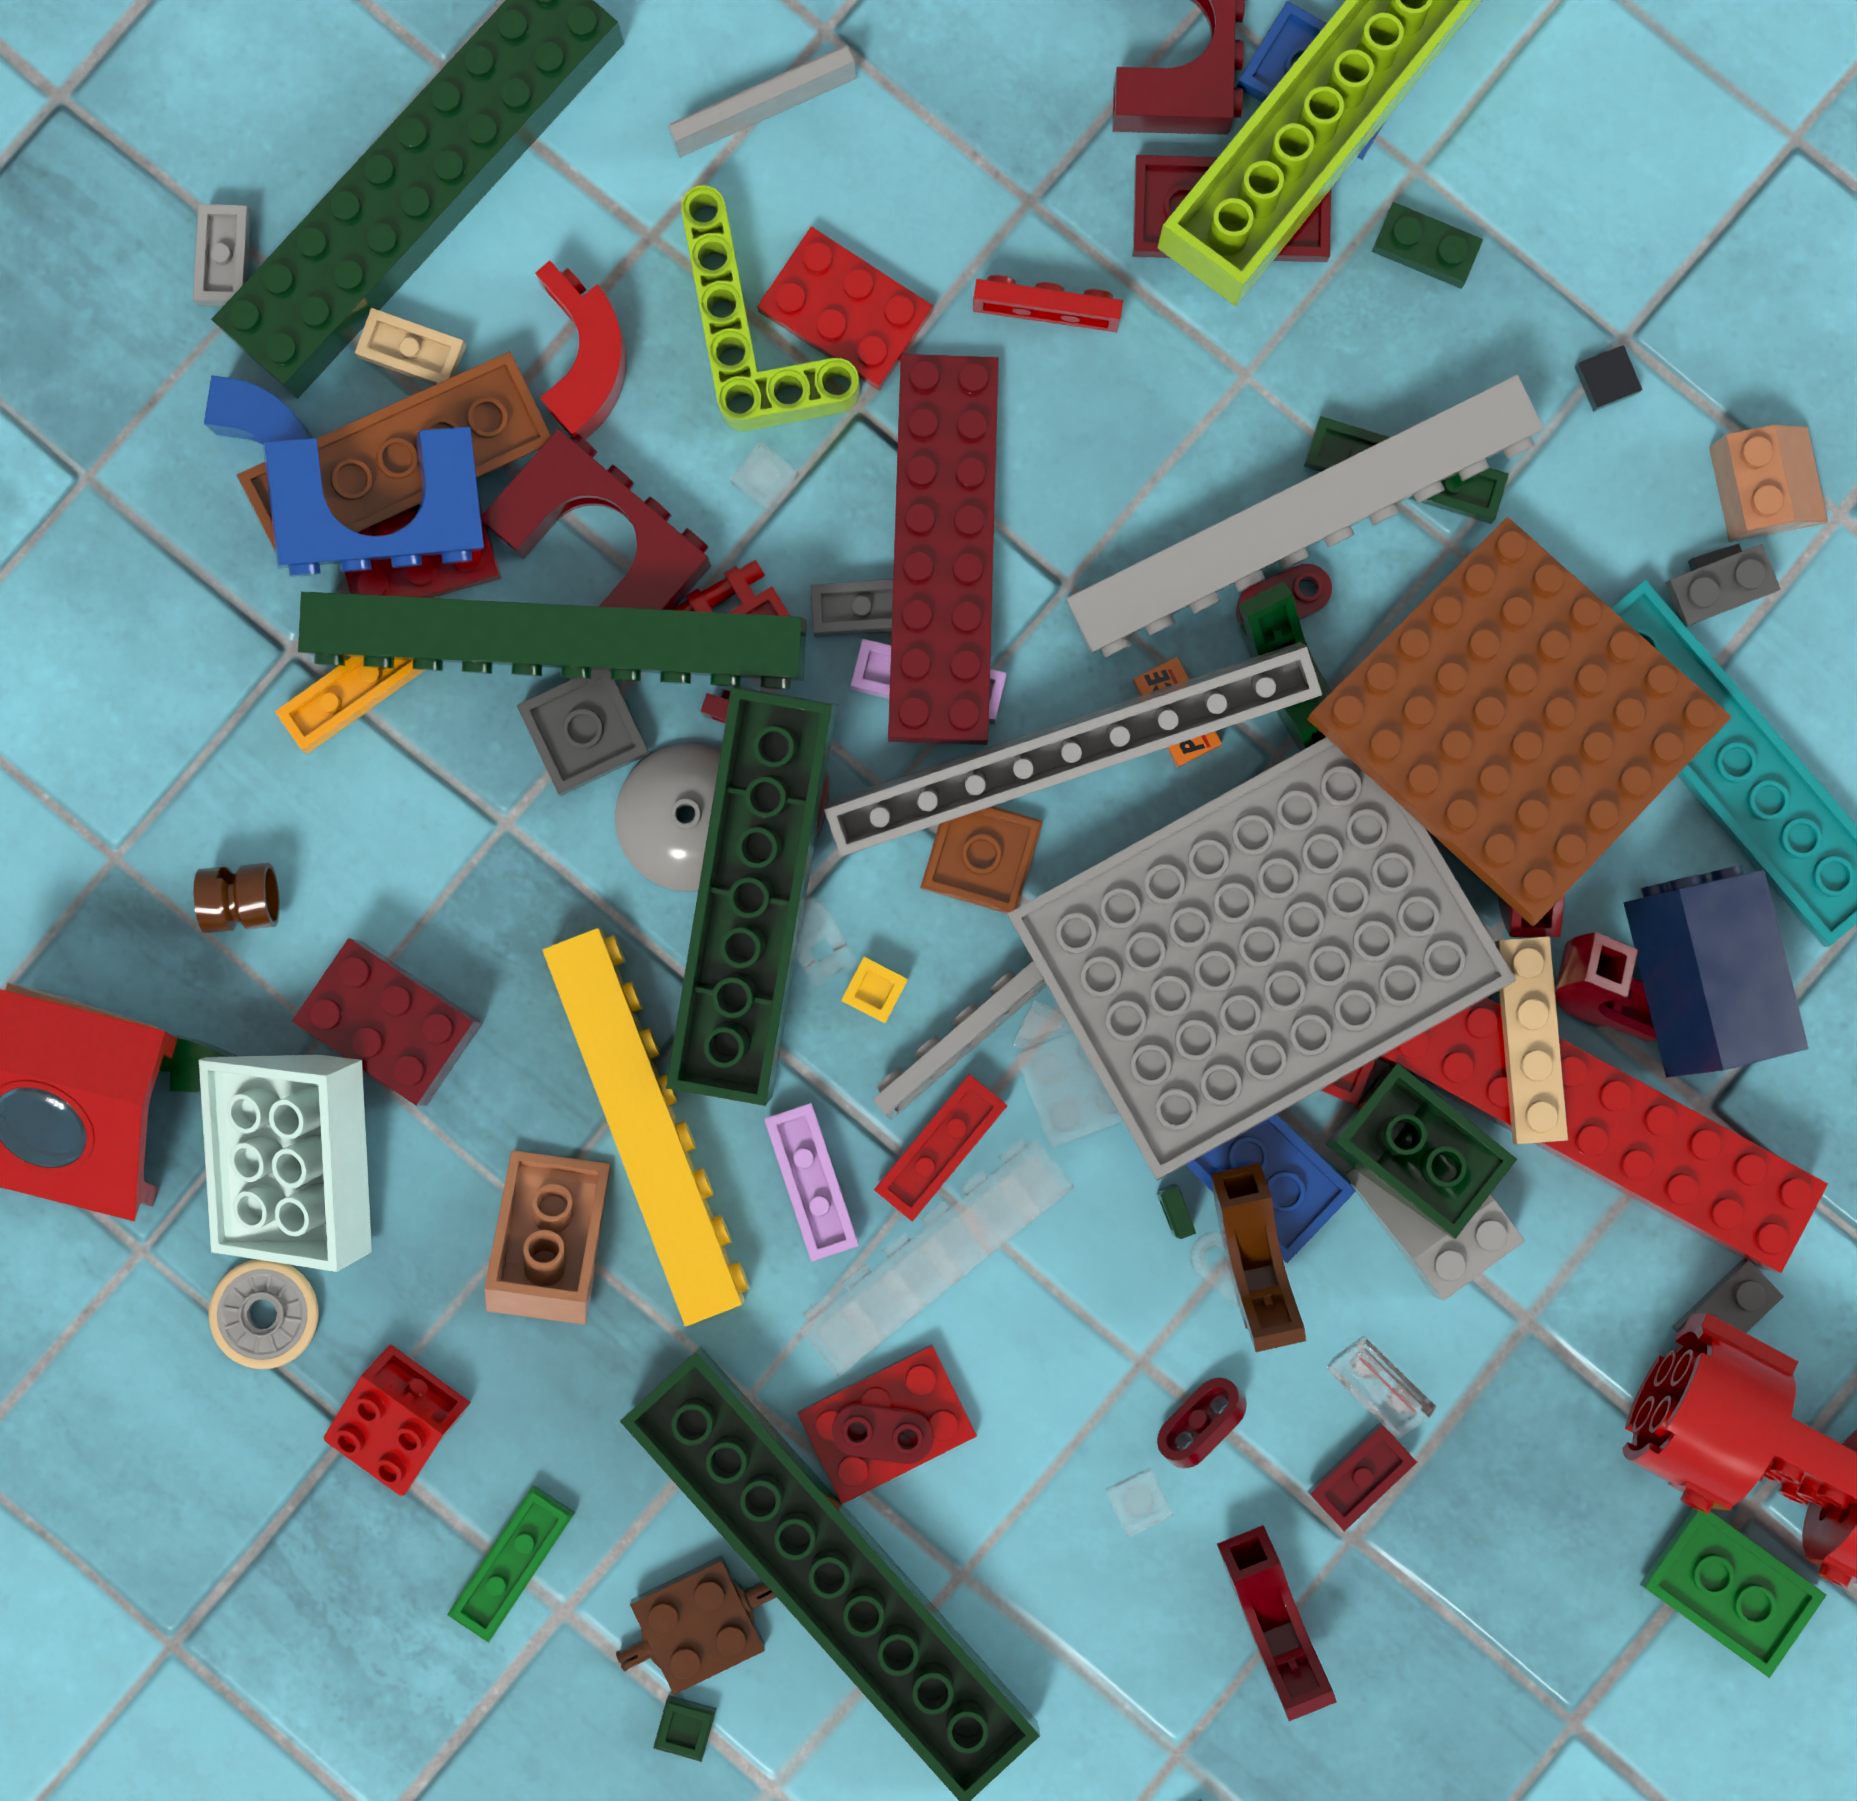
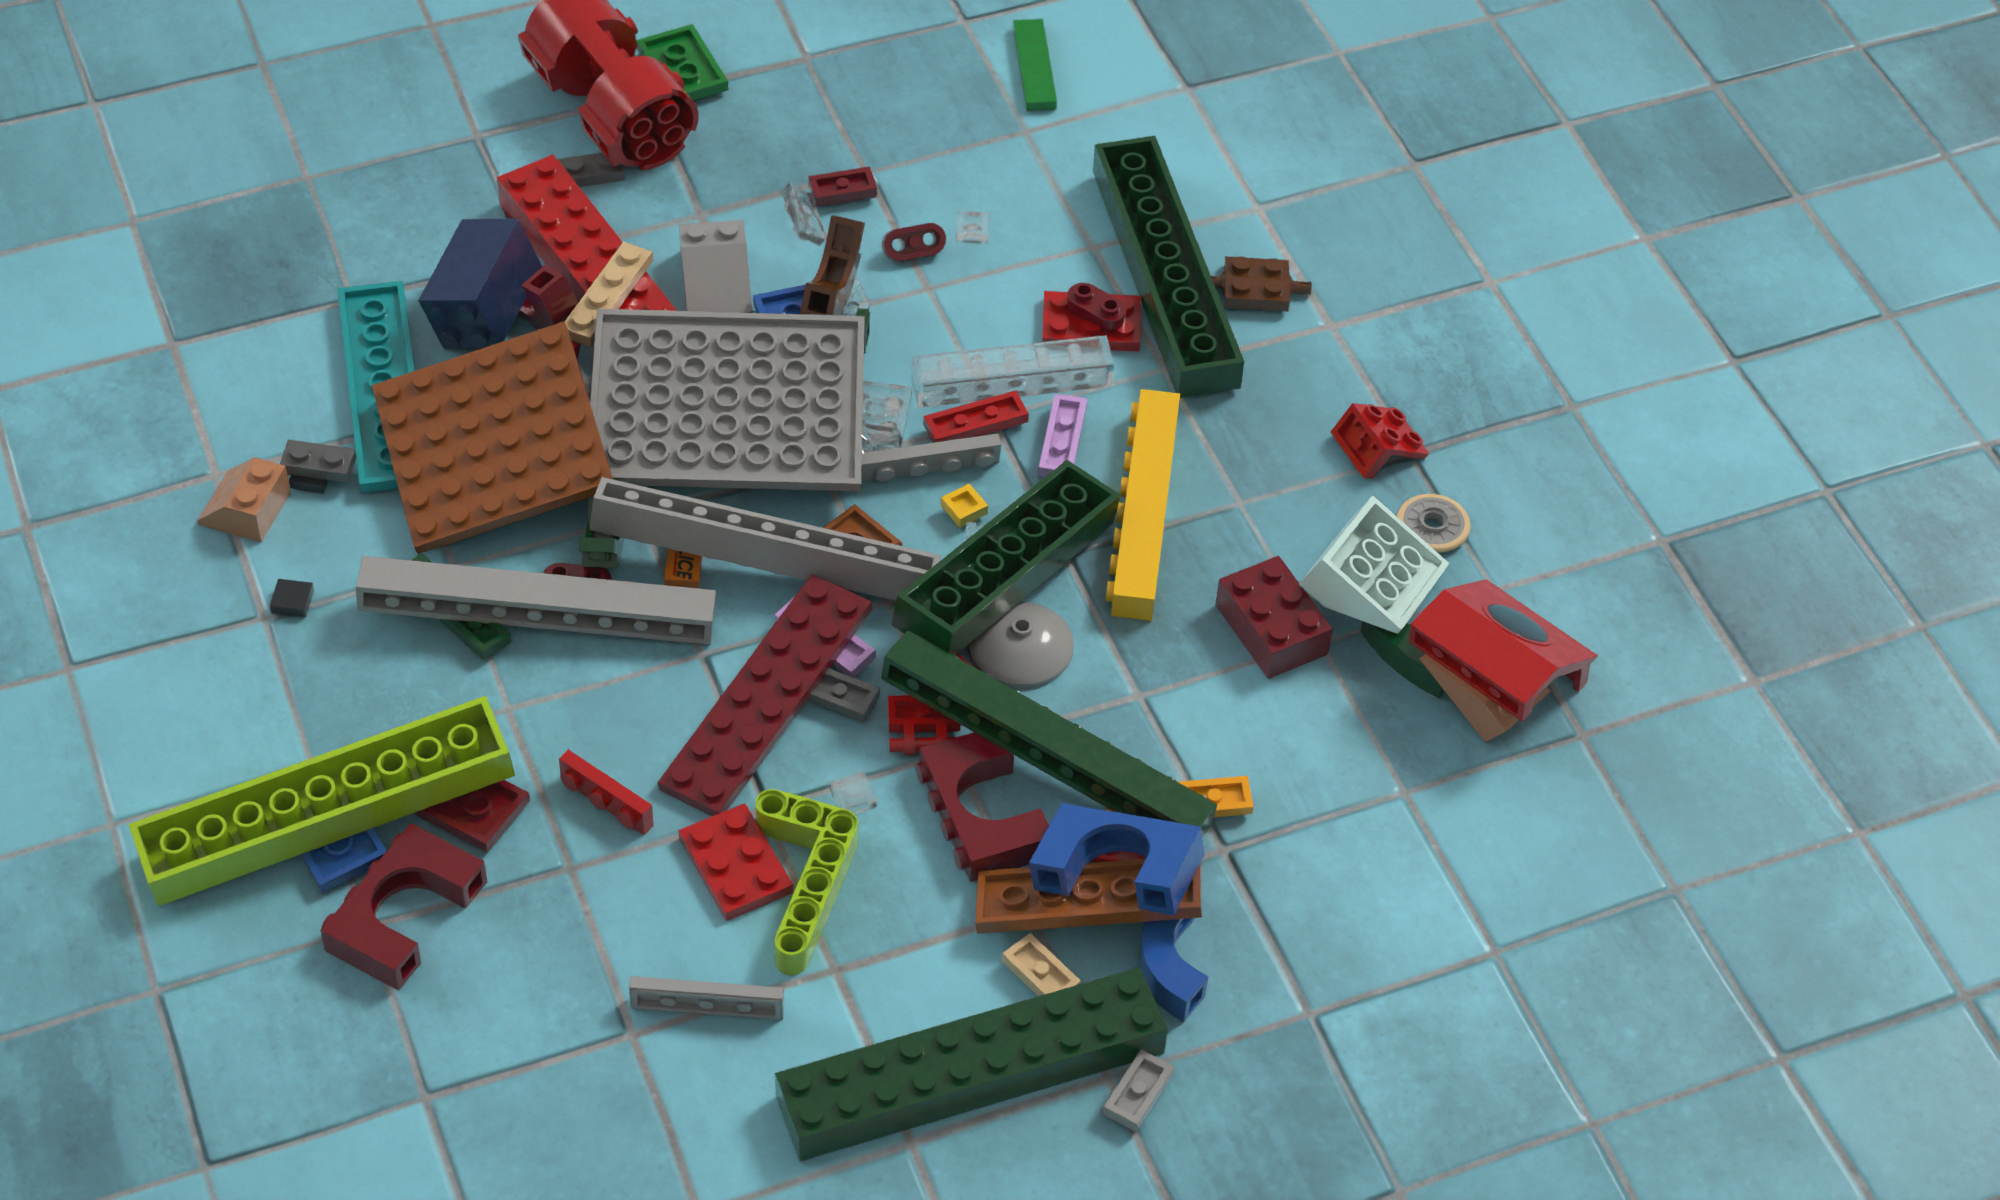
camera: 155 degrees left, 35 degrees down
(231, 898) = (1321, 715): reddish brown wheel -> none
(511, 1563) = (1348, 355): green tile -> none
(547, 1237) = (1237, 475): nougat slope -> none
(583, 730) = (1066, 697): dark grey plate -> none
(596, 379) = (925, 892): red arch -> none
(684, 1728) = (1292, 248): dark green tile -> none
(1275, 1623) = (936, 139): dark red arch -> none
(1421, 1150) = (703, 278): dark green slope -> none
(1427, 245) = (340, 716): dark green plate -> none

